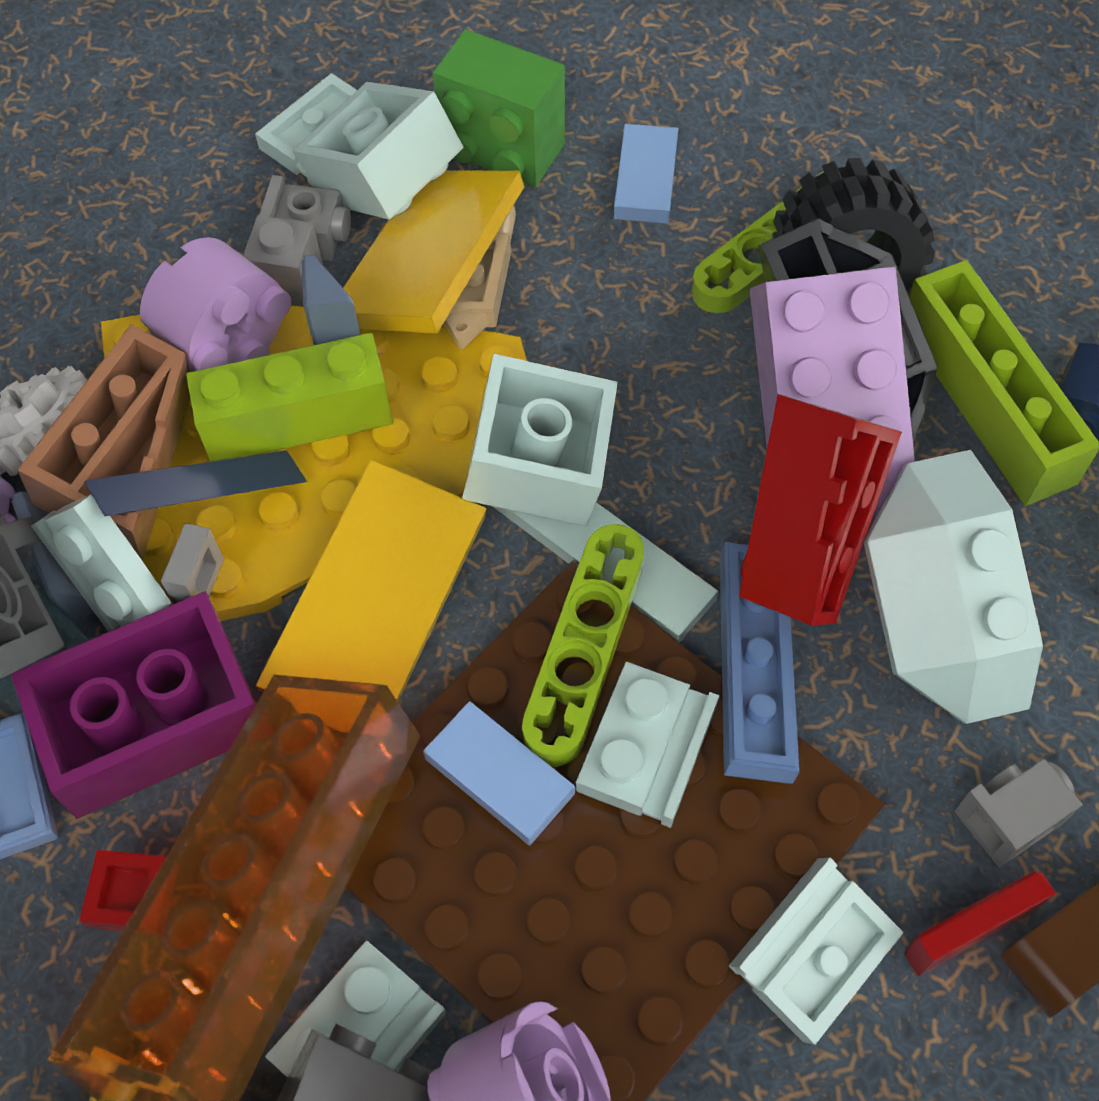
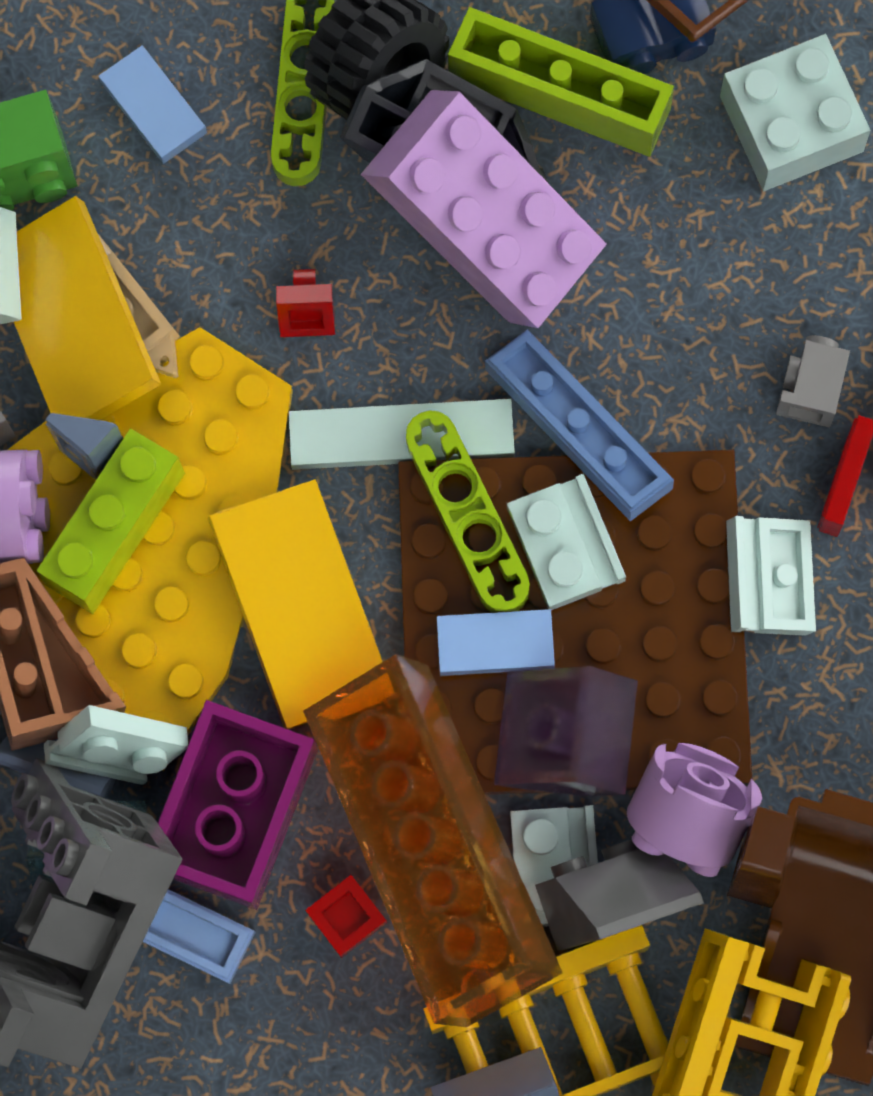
camera: 40 degrees left, 15 degrees up
(192, 564) = (174, 693): light grey tile -> none
(194, 482) = (124, 635): dark blue sticker -> none
(481, 911) = (566, 731): none -> slope
(541, 440) = (311, 402): light aqua brick -> none
(631, 378) = (305, 306): none -> red tile
(813, 509) = (546, 304): red wedge -> none
(955, 589) = (661, 272): light aqua wedge -> none

